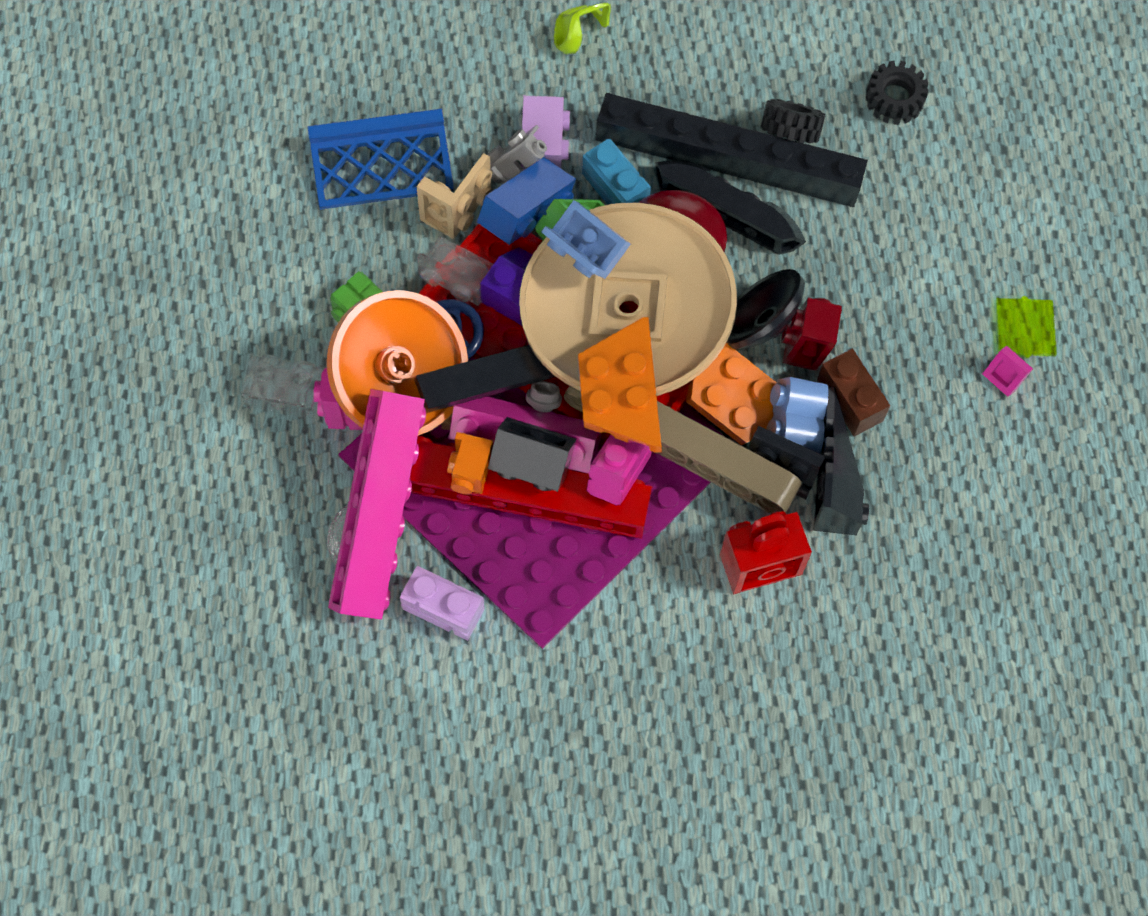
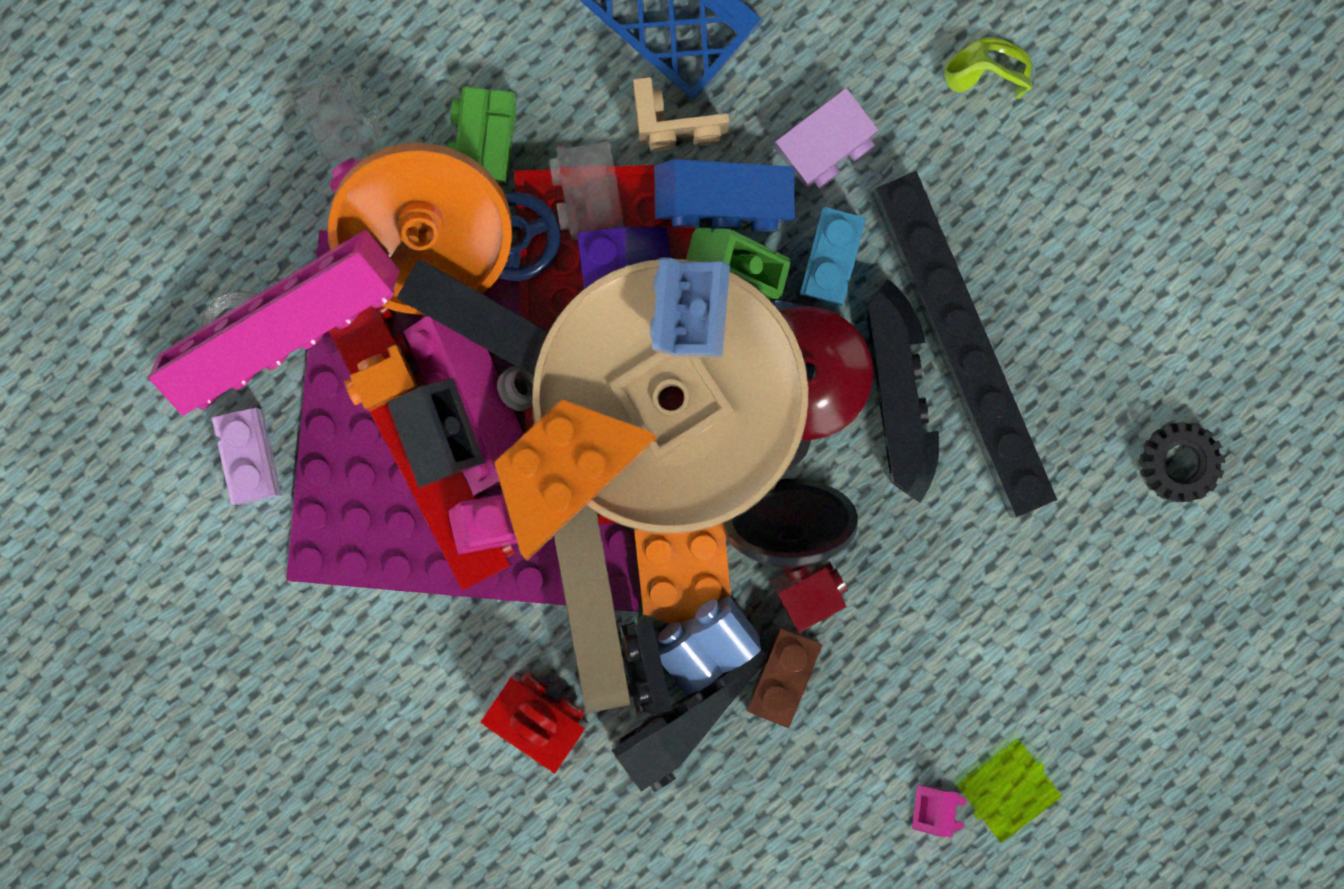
camera: 55 degrees right, 20 degrees up
(521, 147) = (769, 135): light grey hinge -> none
(792, 121) = (1046, 385): black tyre -> none

